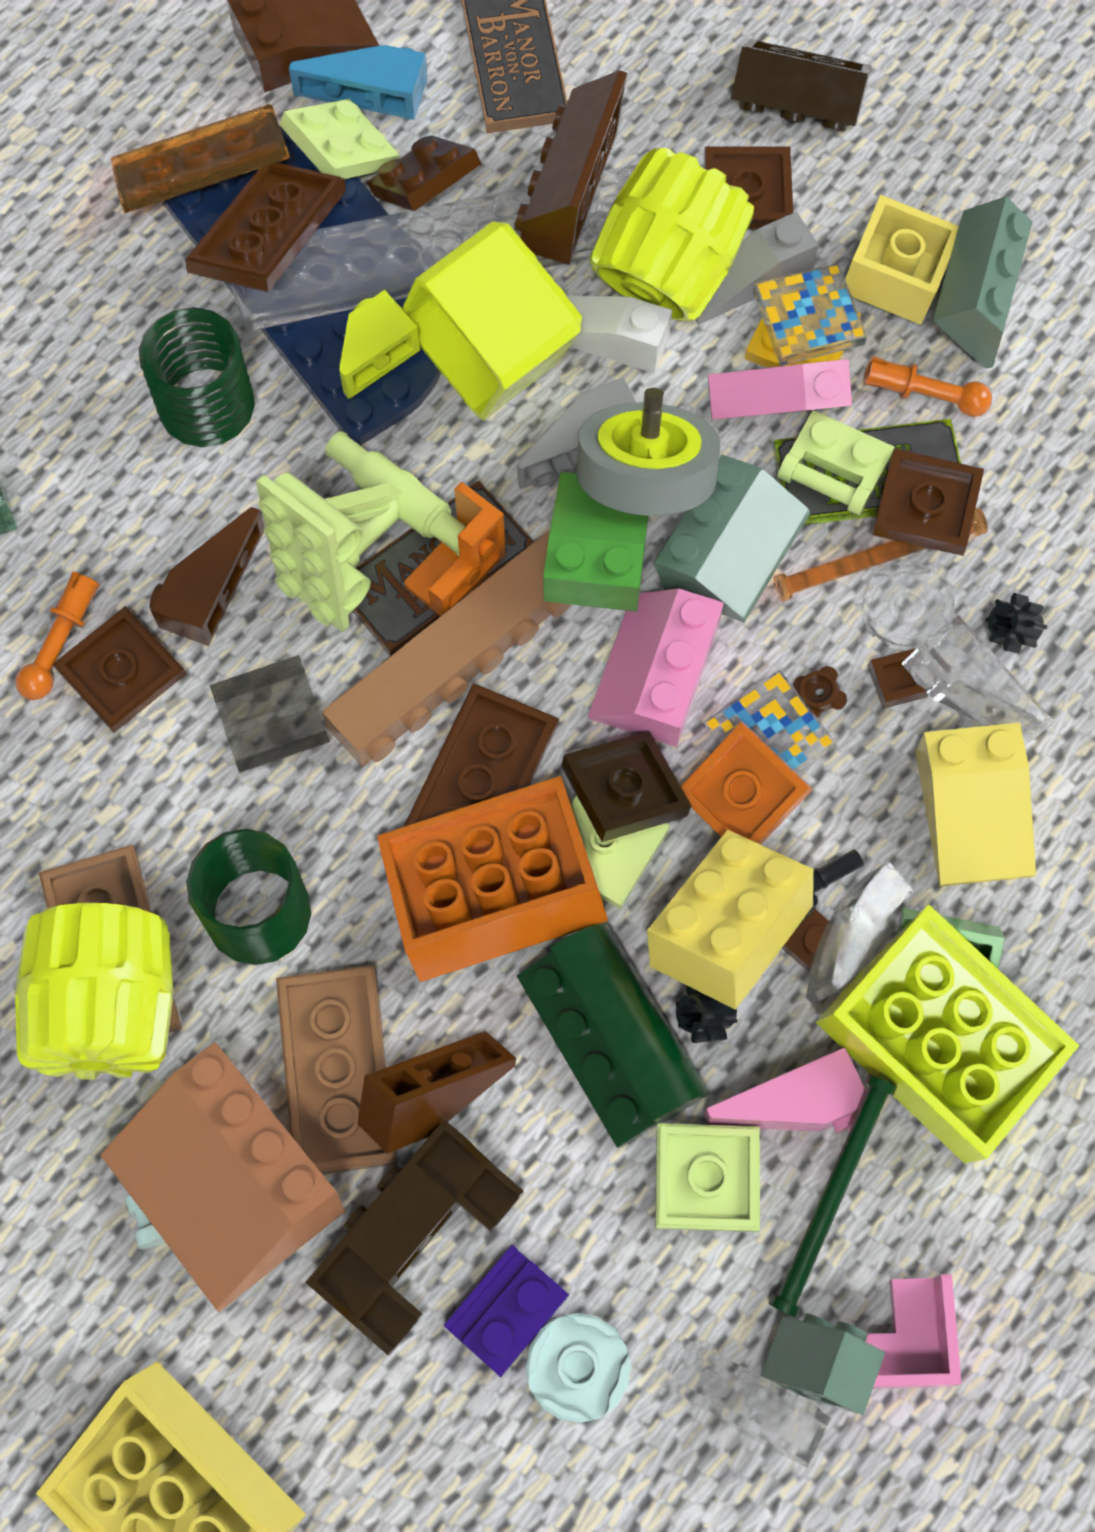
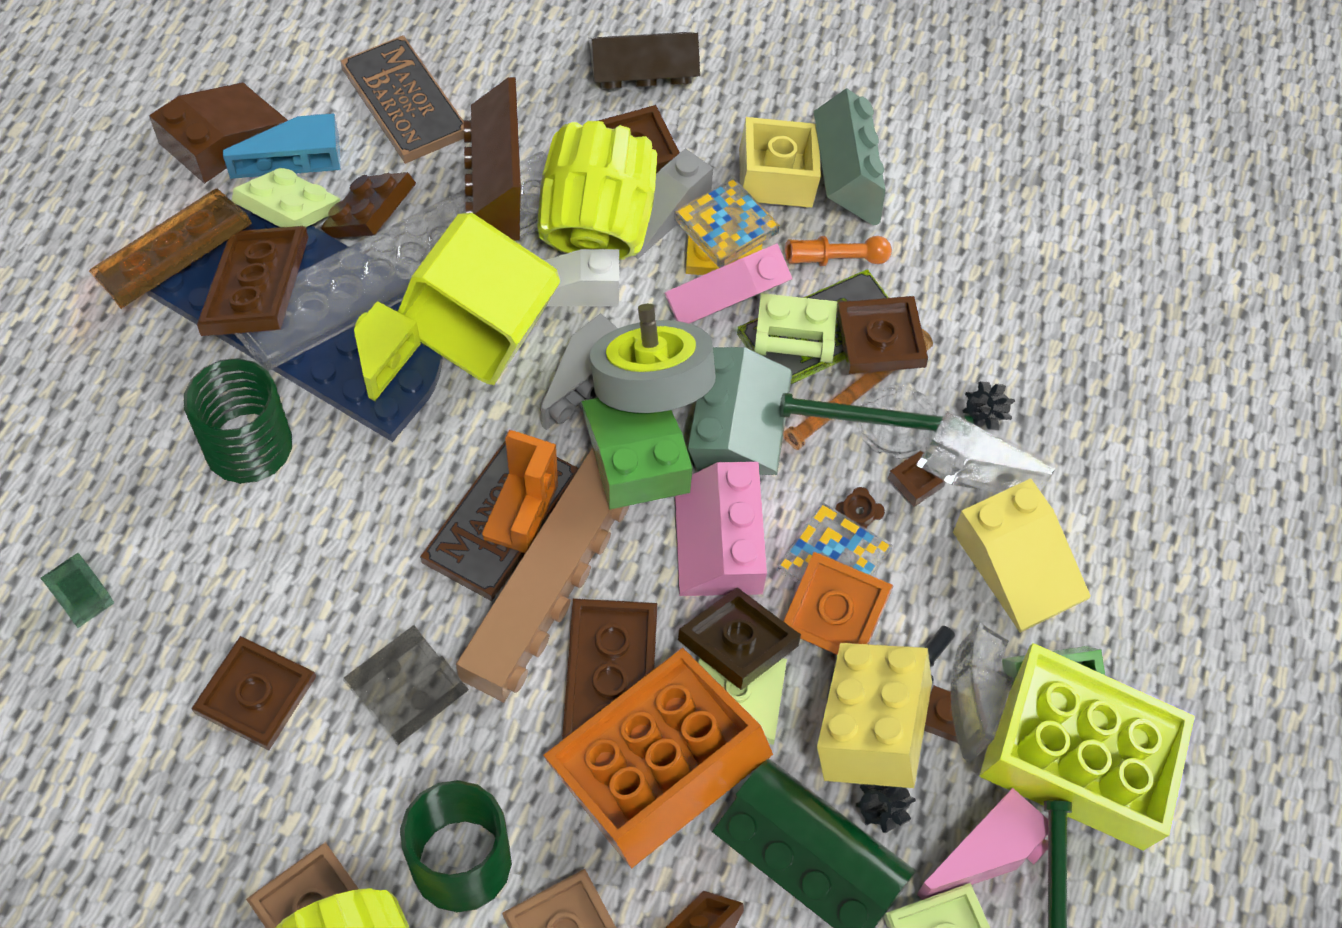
camera: 25 degrees left, 10 degrees down
(35, 679) = (179, 727): orange pin -> none
(204, 582) = (305, 592): reddish brown slope -> none
(321, 539) = (401, 515): yellowish green plate -> none
(866, 587) = (859, 413): none -> dark green bar

